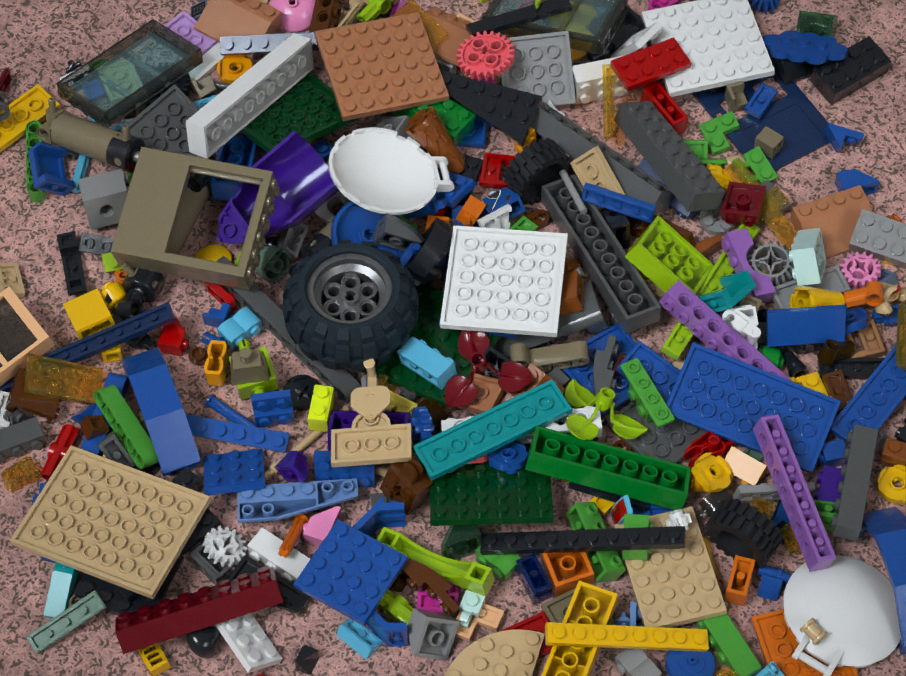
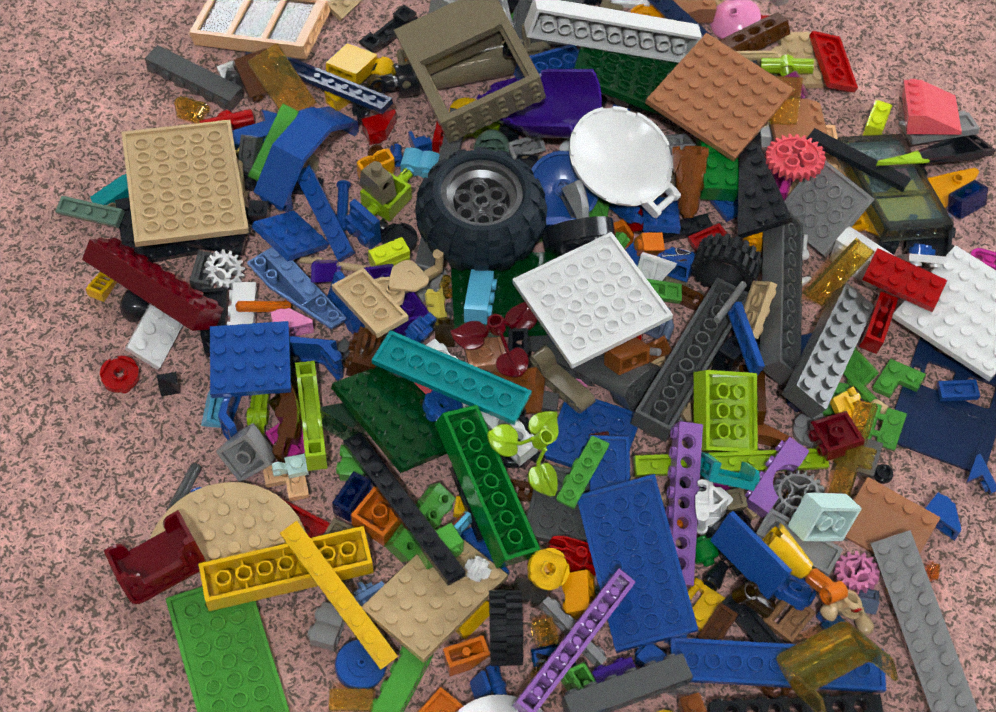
camera: 50 degrees right, 0 degrees up
(94, 426) = (259, 125): reddish brown slope -> none
(603, 367) = (574, 432): dark grey slope -> none
(627, 36) = (922, 249): none -> blue plate
(735, 97) = (943, 367): dark tan panel -> none
(769, 142) = (920, 421): dark tan panel -> none
(792, 196) = (883, 474): none -> black plate

